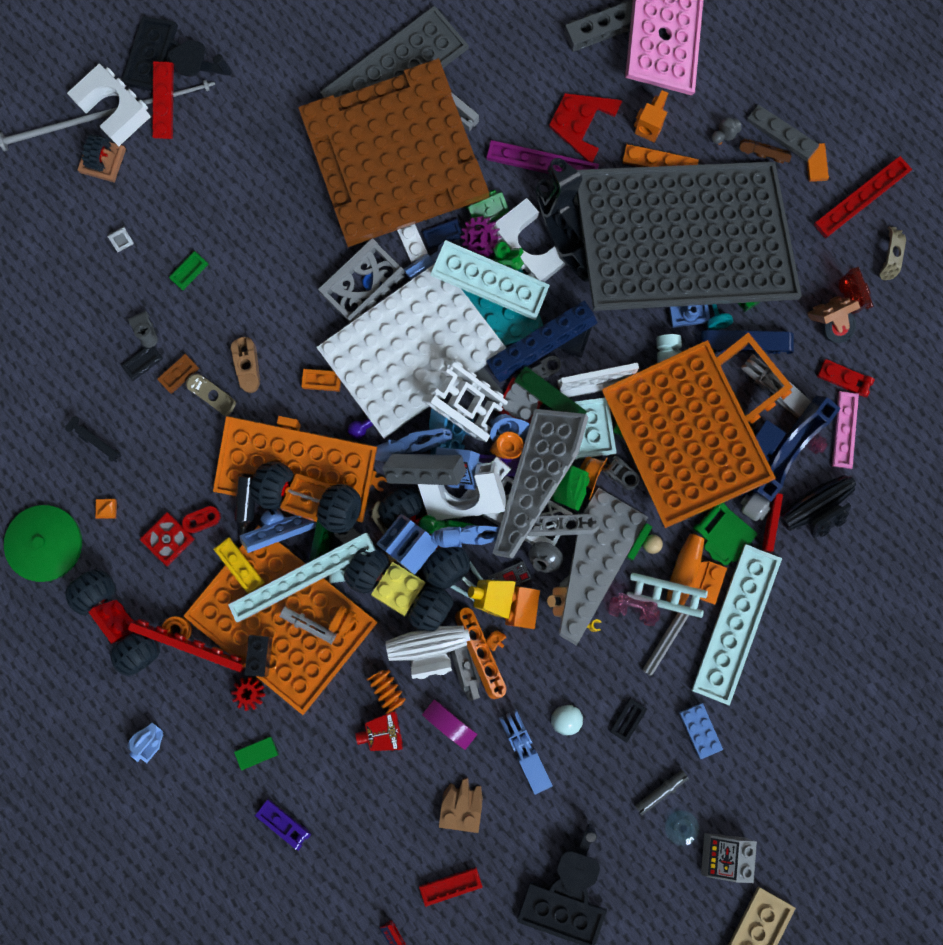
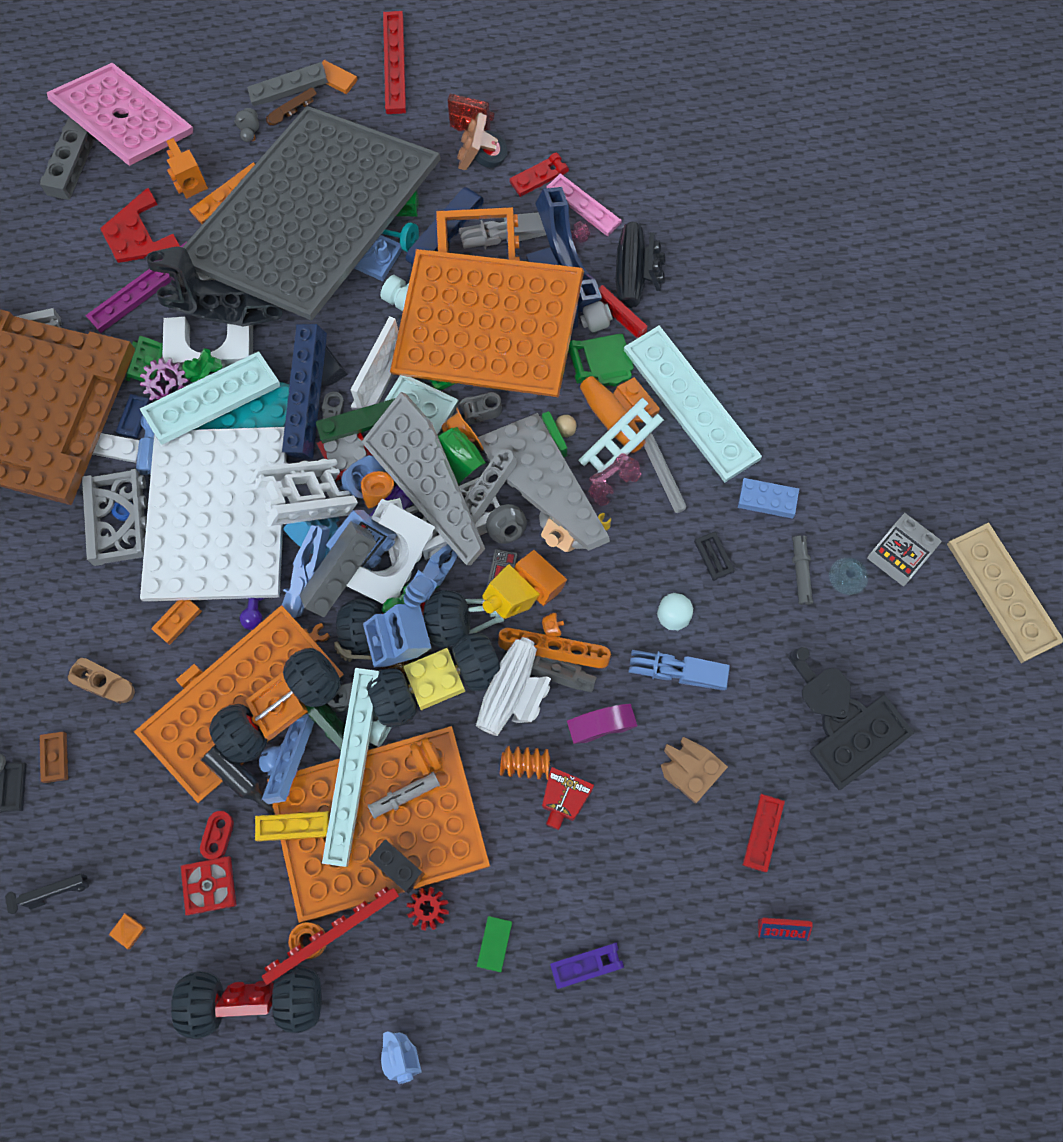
camera: 55 degrees left, 10 degrees down
(42, 543) = (108, 1028): green dish -> none
(201, 387) = (87, 742): dark tan piece -> none
(893, 264) = (470, 75): dark tan piece -> none

